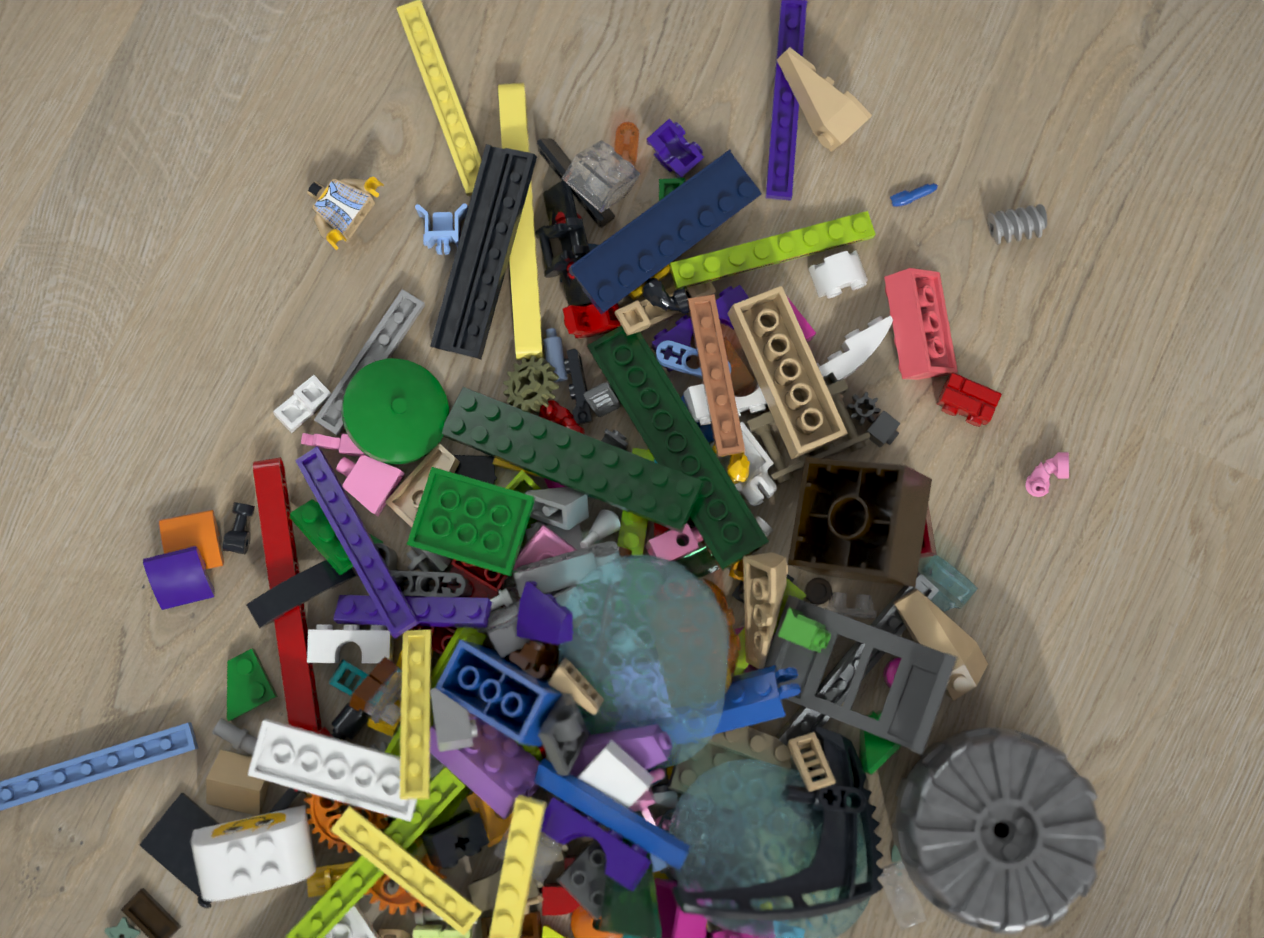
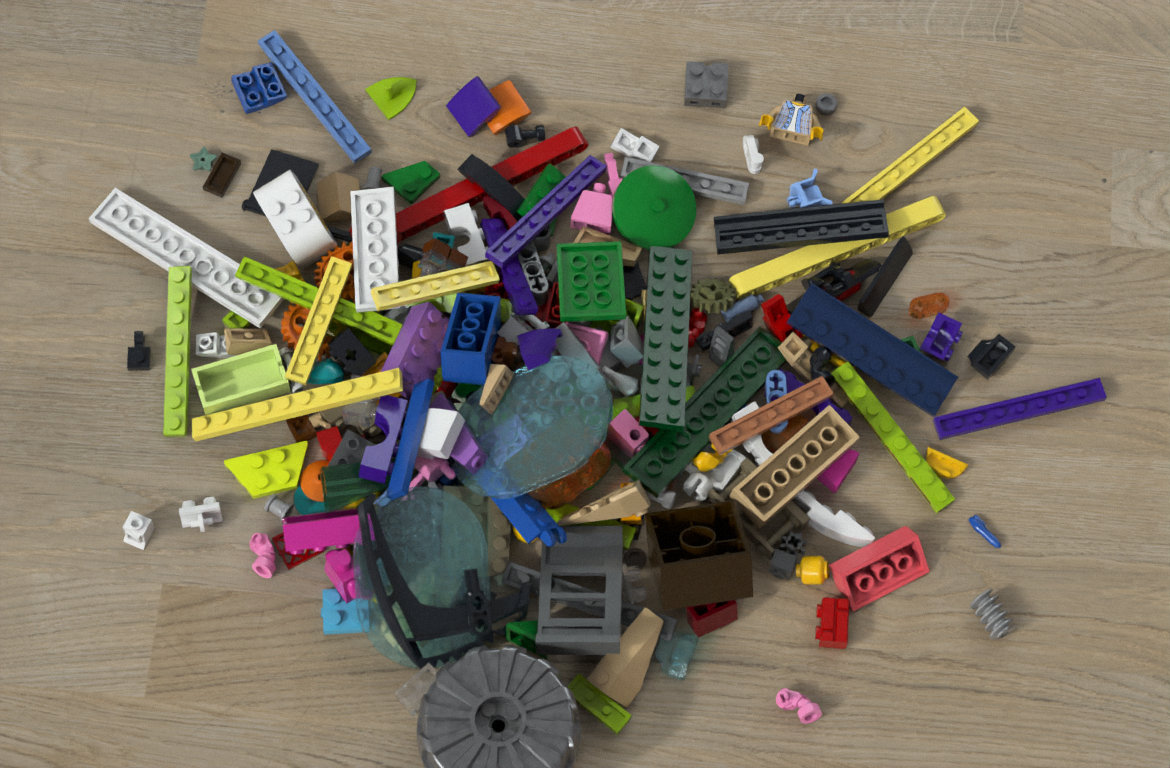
camera: 70 degrees right, 15 degrees down
(48, 833) = (259, 88): none -> blue slope
(120, 669) = (392, 94): none -> lime shield
(253, 290) = (706, 85): none -> flat silver piece
(329, 598) = (497, 211): none -> dark red slope
(331, 162) = (826, 104): none -> flat silver tile
(357, 270) = (753, 158): none -> white plate
(451, 723) = (436, 309): light grey slope -> none
(470, 877) = (326, 372): none -> teal hat
(564, 734) = (457, 386): dark grey plate -> none
(601, 175) = (894, 289): clear brick -> none
(711, 104) = (990, 355): none -> black slope
(804, 631) = (598, 541): bright green window -> none
(810, 741) = (510, 575): tan slope -> none
(821, 207) = (944, 465): none -> yellow tile
(827, 110) = (1019, 440): tan wedge -> none
(838, 272) = (896, 493): white cylinder -> none
(900, 398) = (813, 570): none -> yellow head
(990, 688) = (599, 704): none -> lime plate

